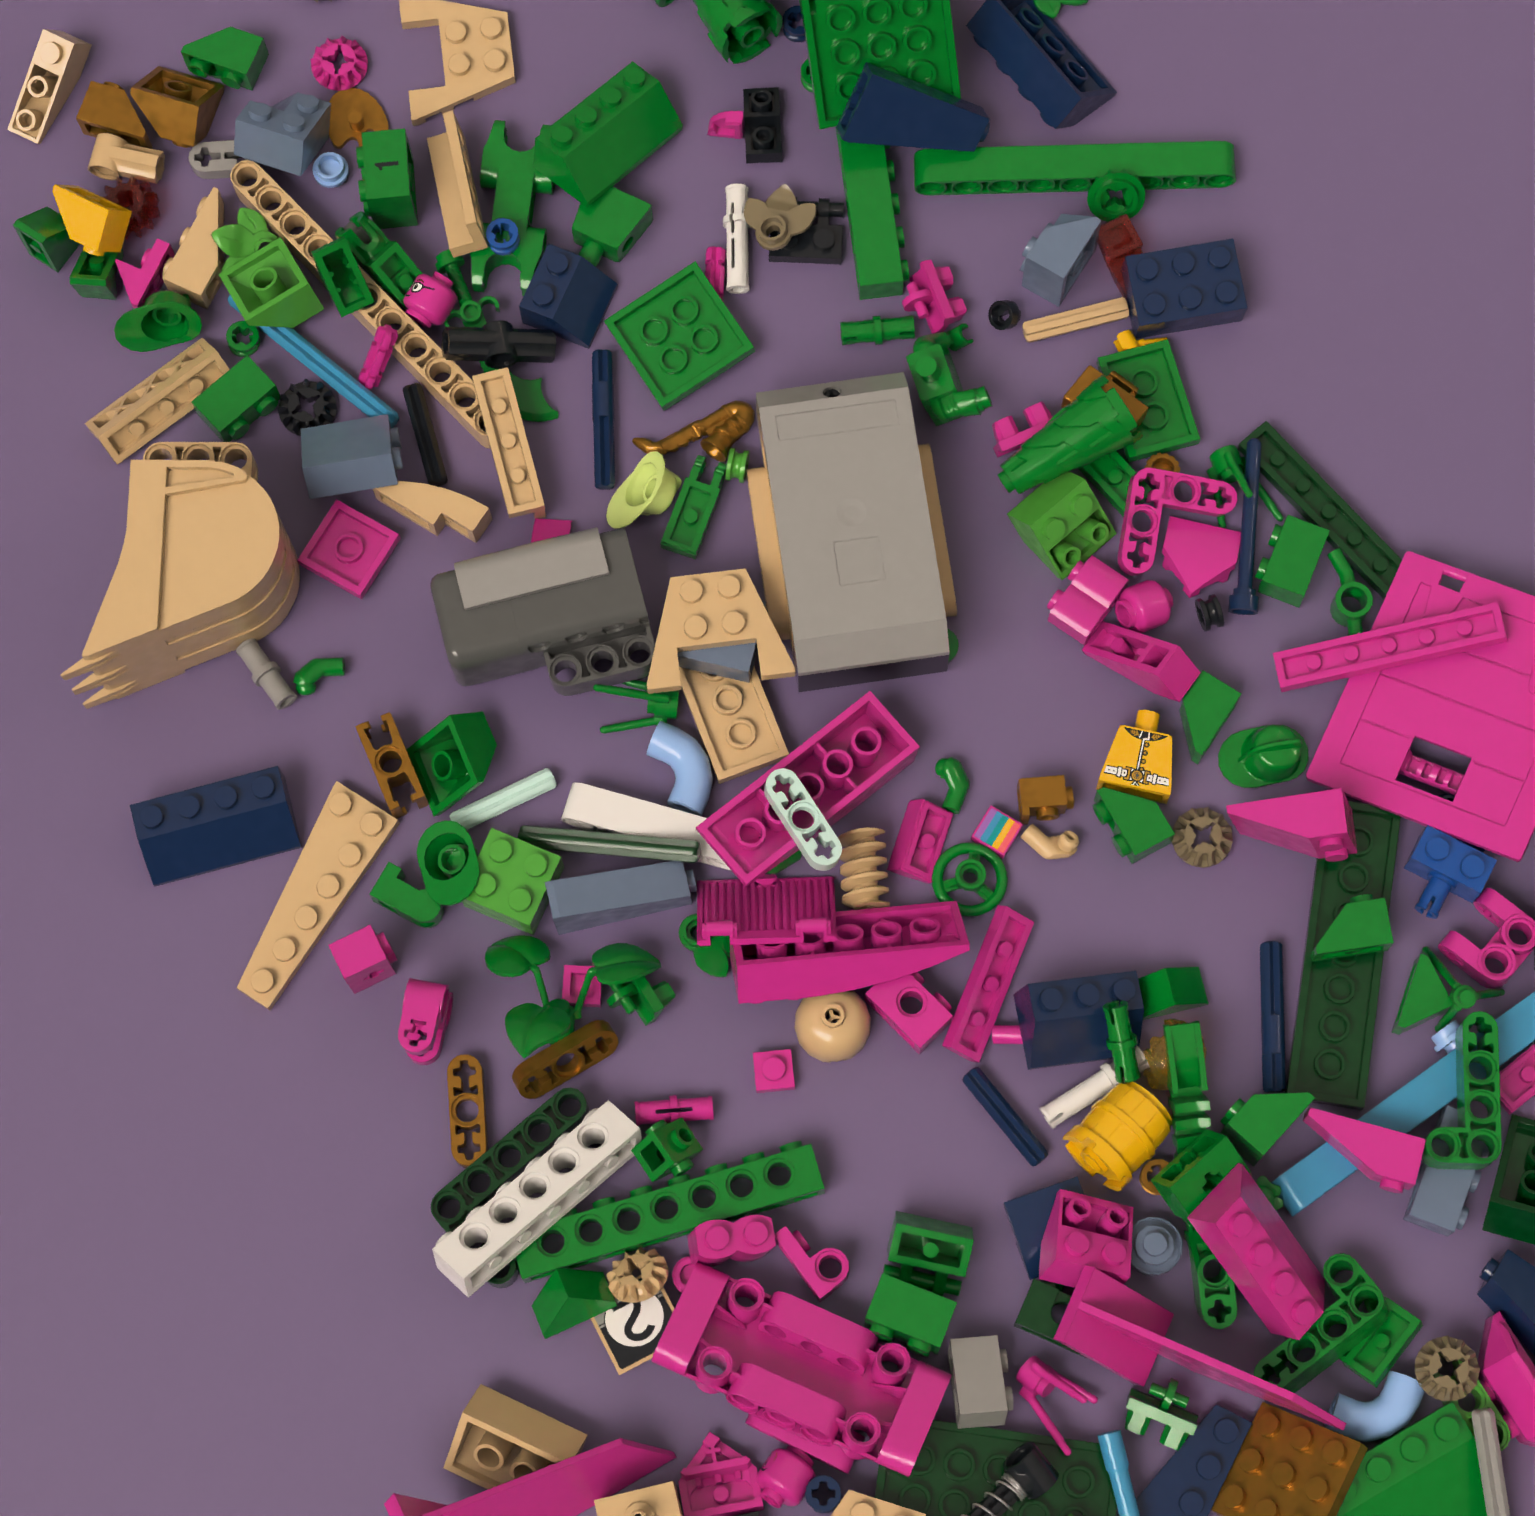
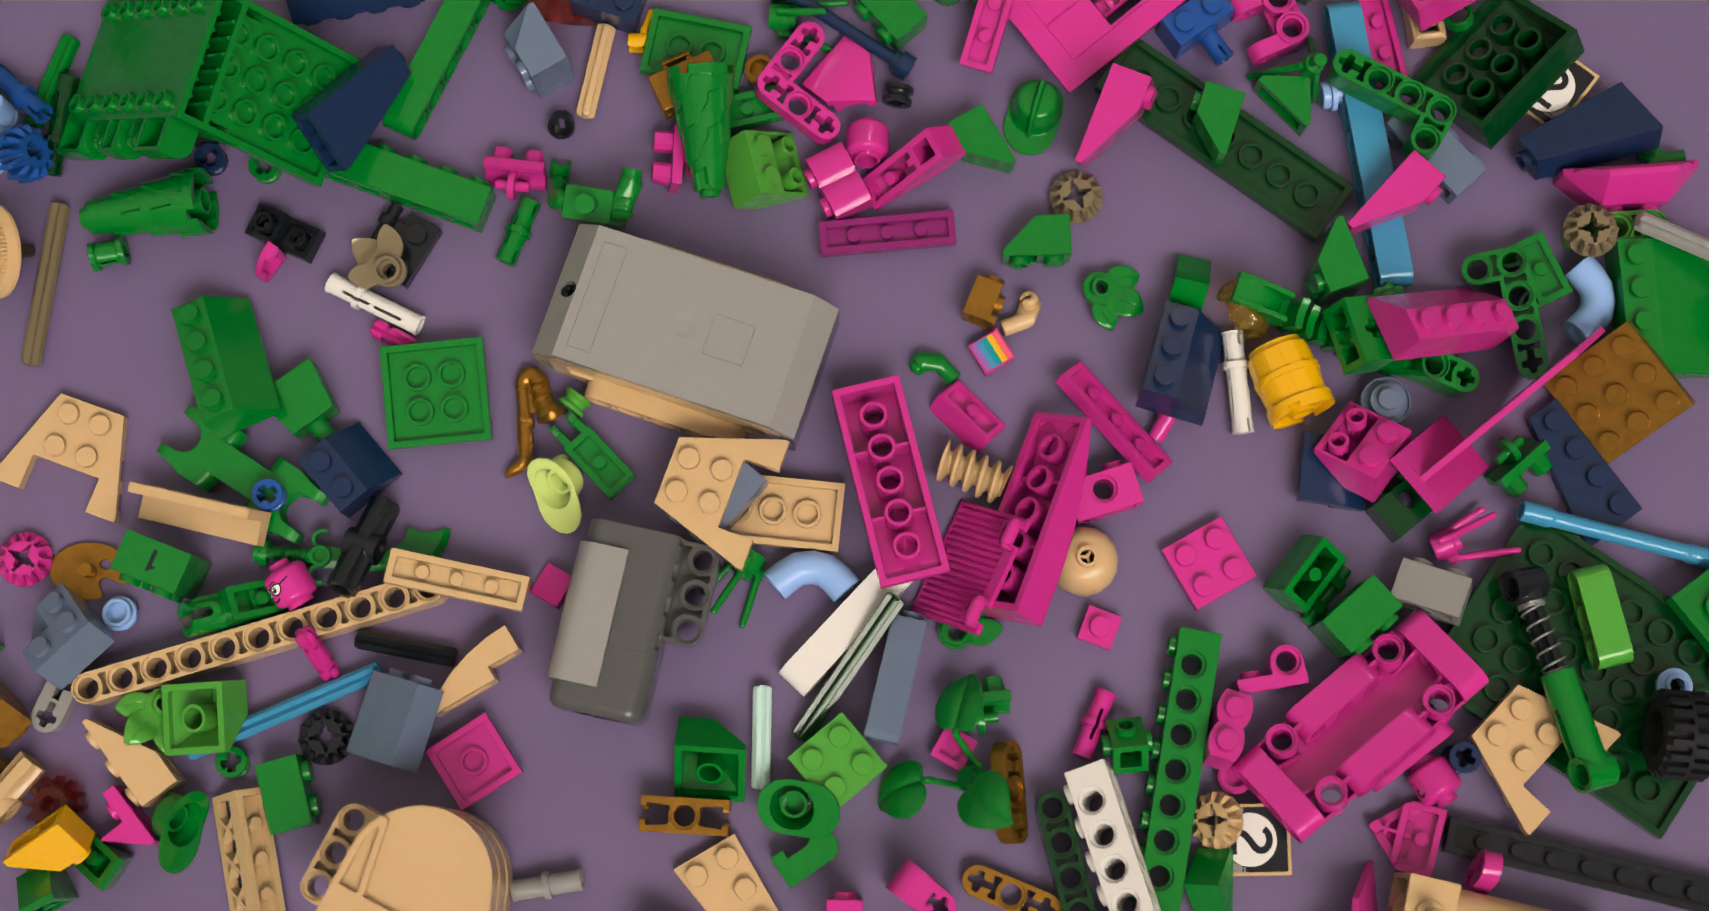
camera: 65 degrees left, 5 degrees up
(314, 670) = (566, 843): green arm -> none
(342, 276) = (232, 648): green slope -> none
(603, 419) = (473, 492): dark blue axle -> none
(825, 838) = (944, 506): light aqua beam -> none
(894, 1148) = (1208, 563): none -> dark pink plate
(970, 865) = (998, 377): green piece -> none
(1005, 1116) = (1225, 463): dark blue axle -> none
(1062, 672) = (887, 233): none -> magenta plate
(1119, 928) = (1118, 295): none -> green plate
(1121, 1041) = (1220, 340): green pin -> none
(1140, 760) = (992, 211): yellow torso -> none
(1148, 1186) = (1336, 379): pearl gold bush -> none
(1272, 1017) = (1246, 218): dark blue axle -> none

